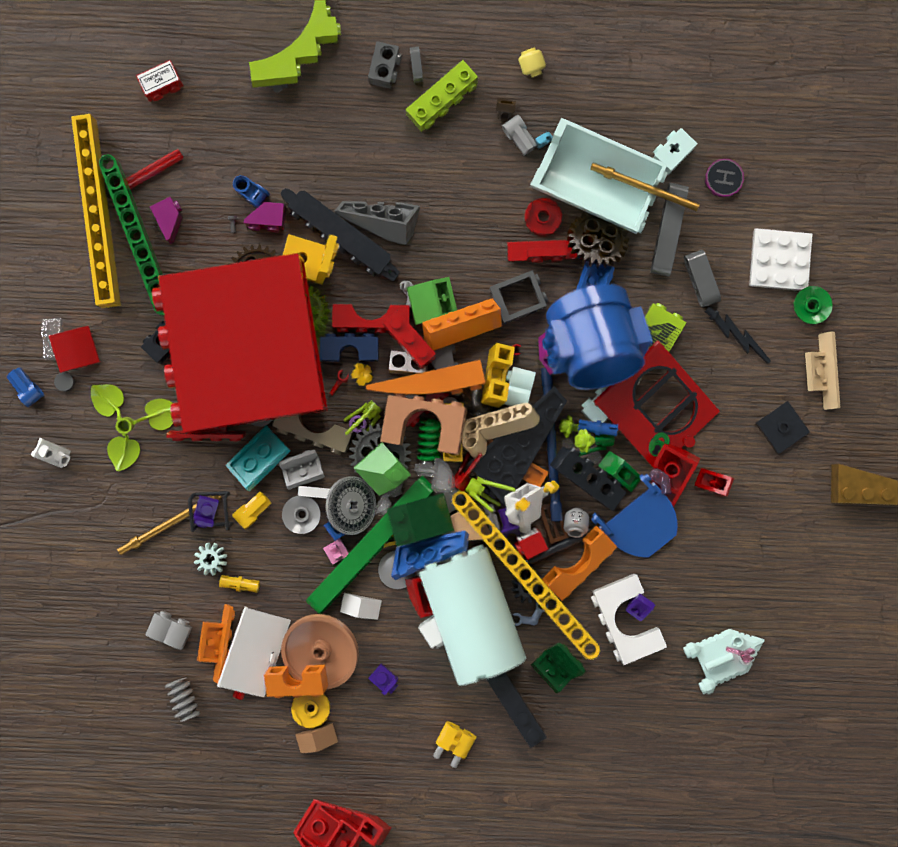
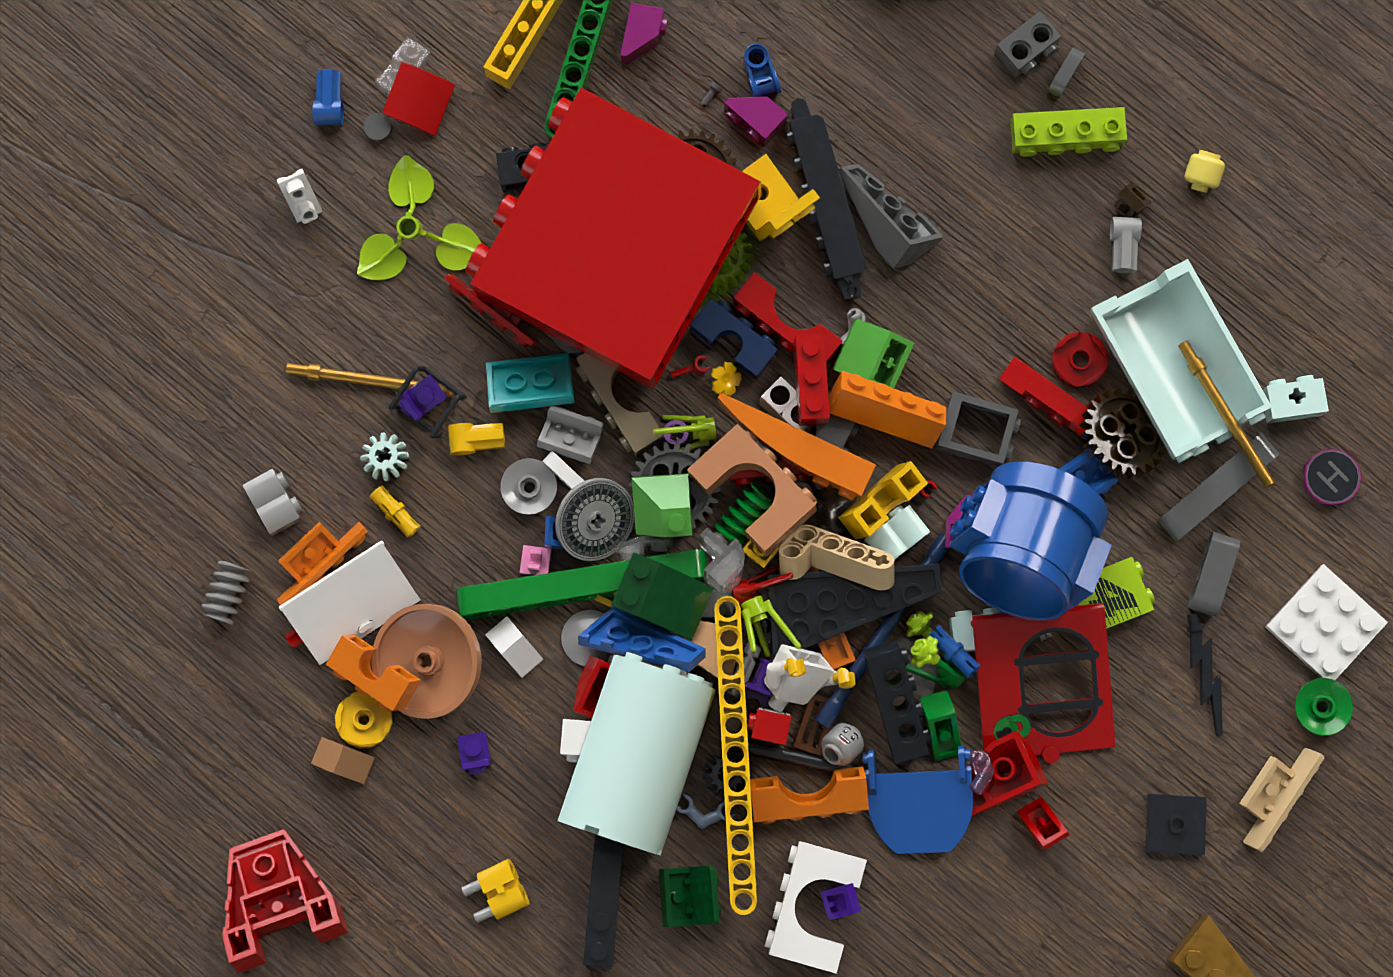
camera: 35 degrees right, 5 degrees down
(543, 139) = (1148, 270): medium azure tile -> none

